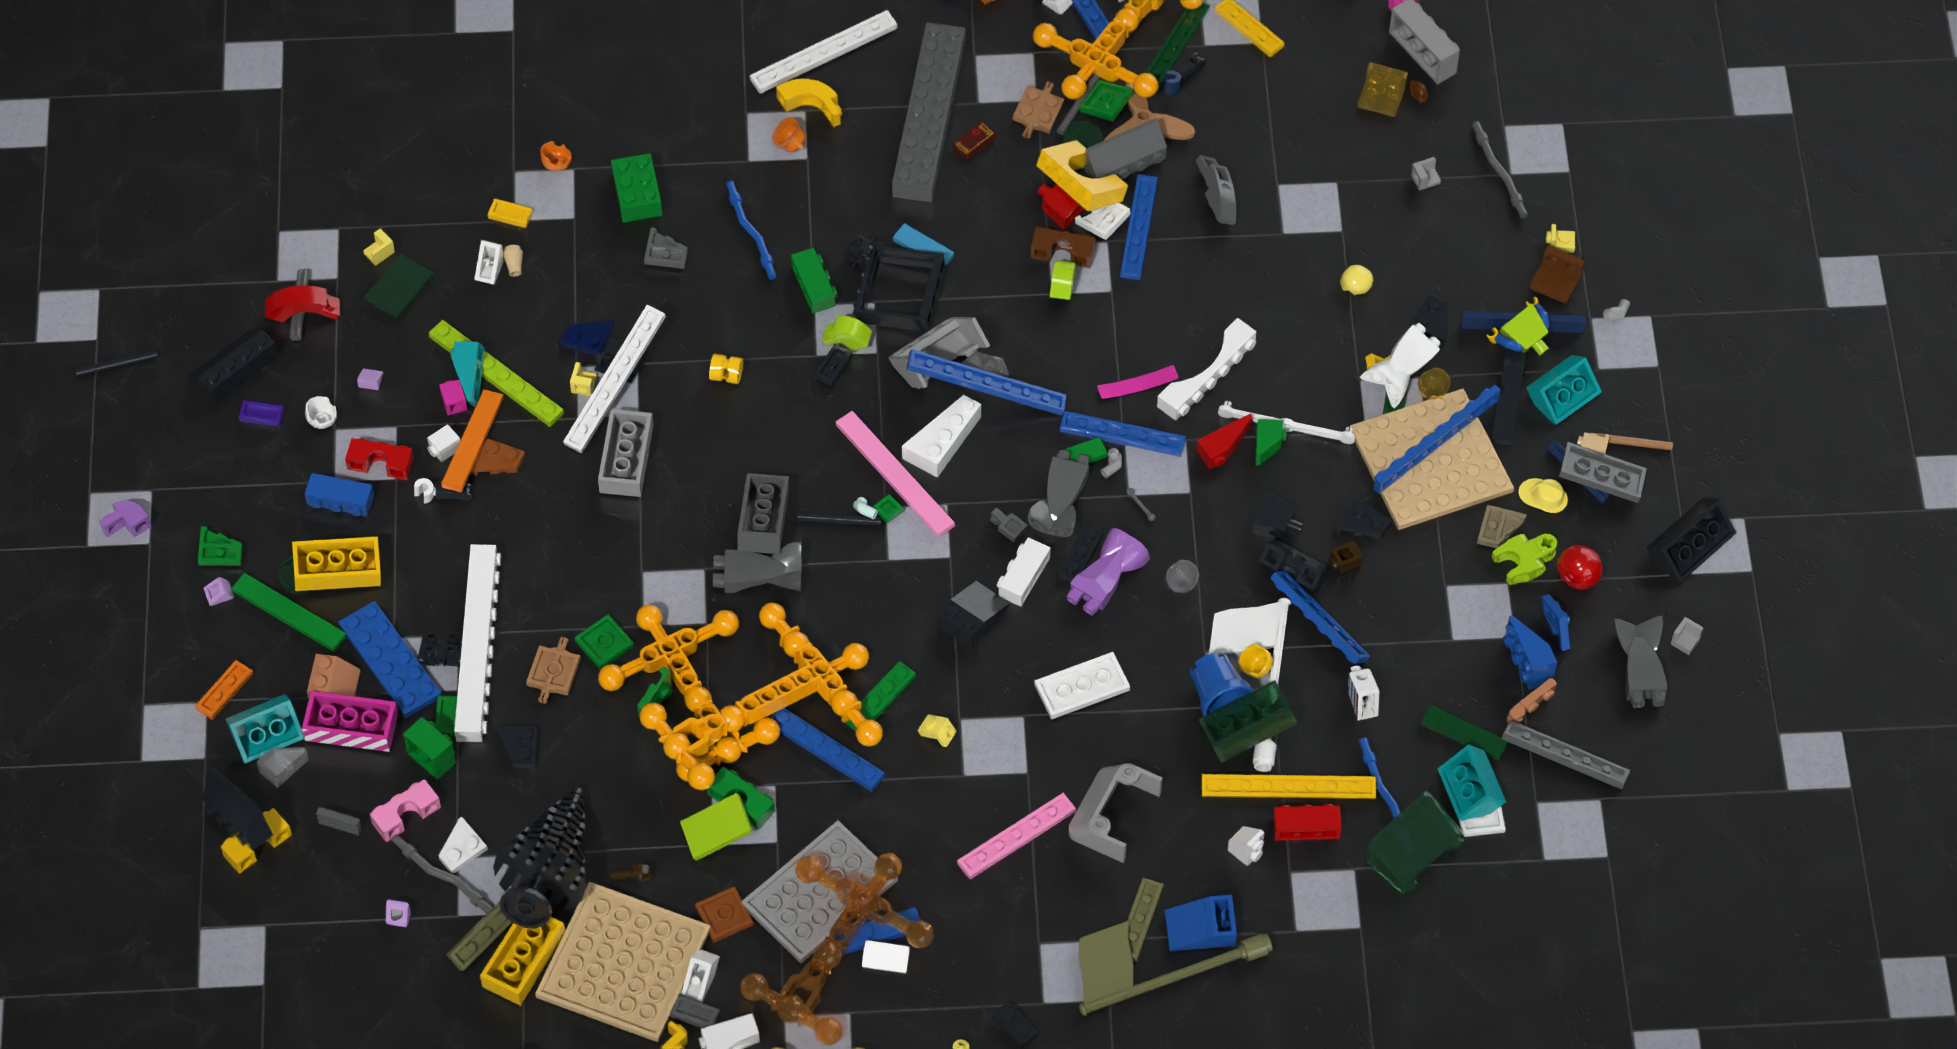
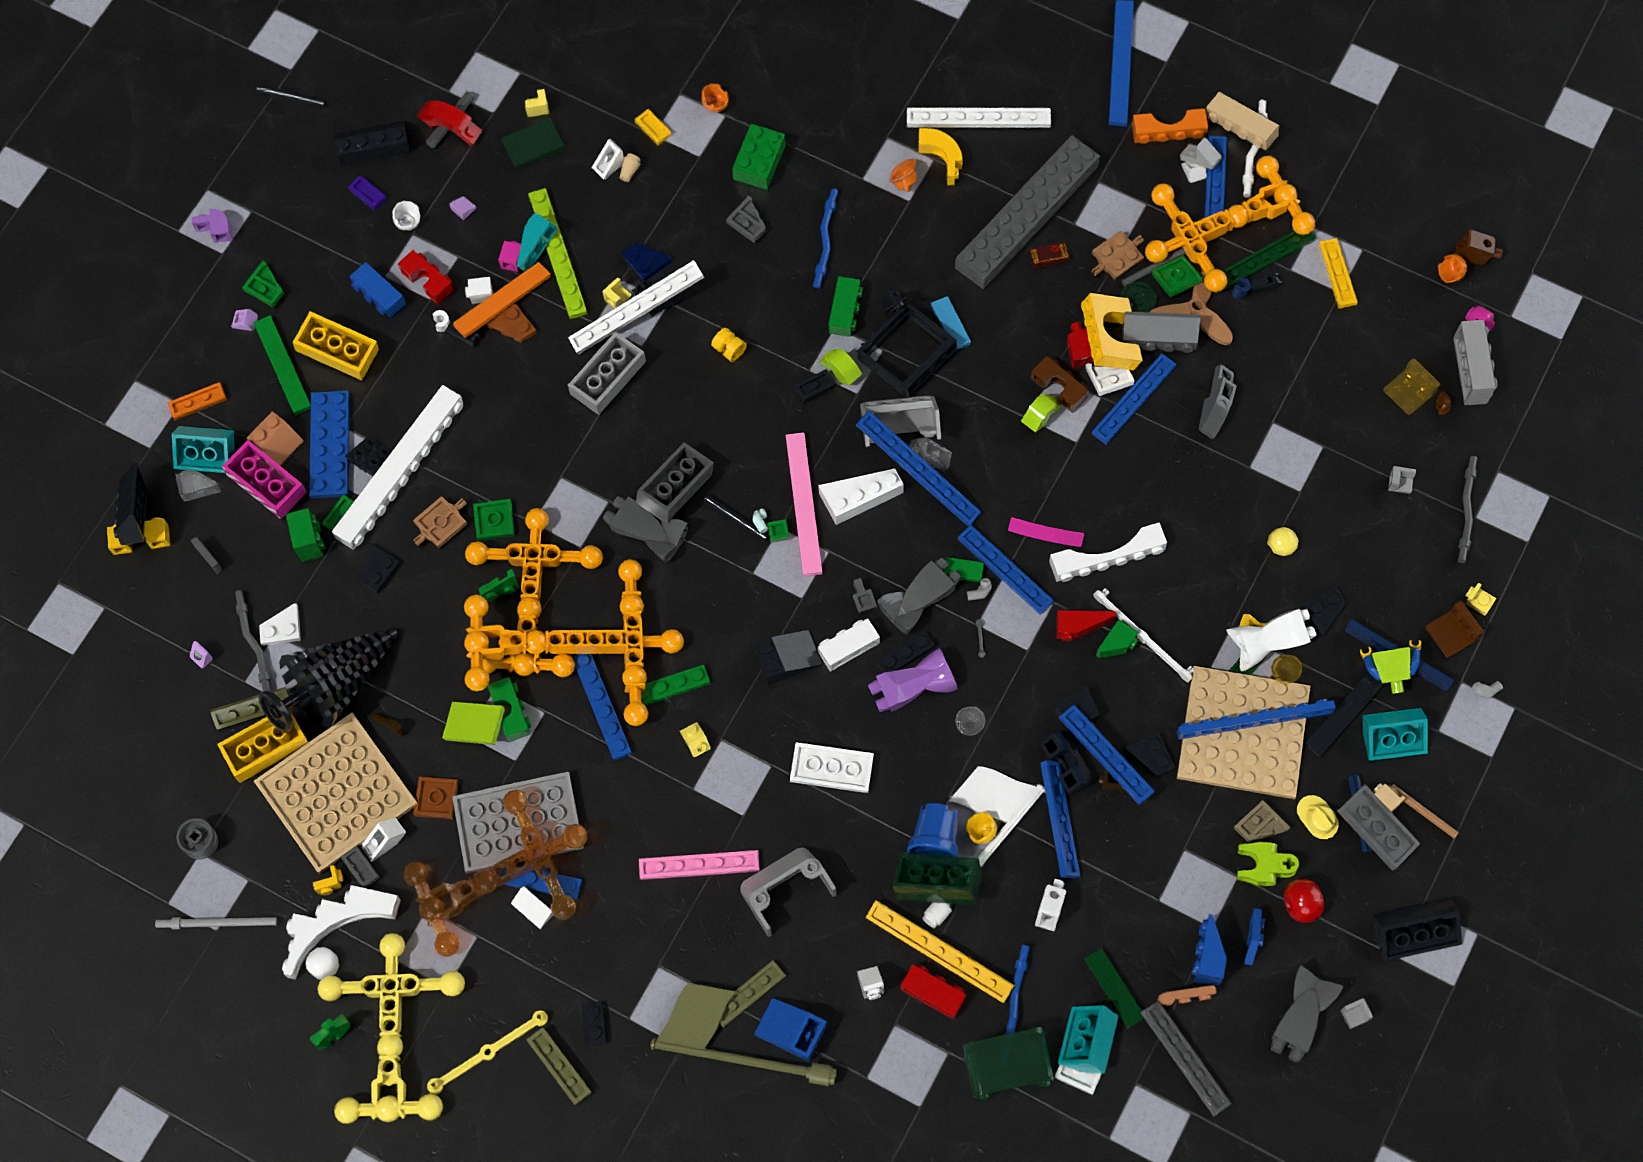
camera: 35 degrees right, 10 degrees up
(417, 798) = (242, 573): bright pink arch -> none
(1326, 537) = (1106, 754): none -> blue tile

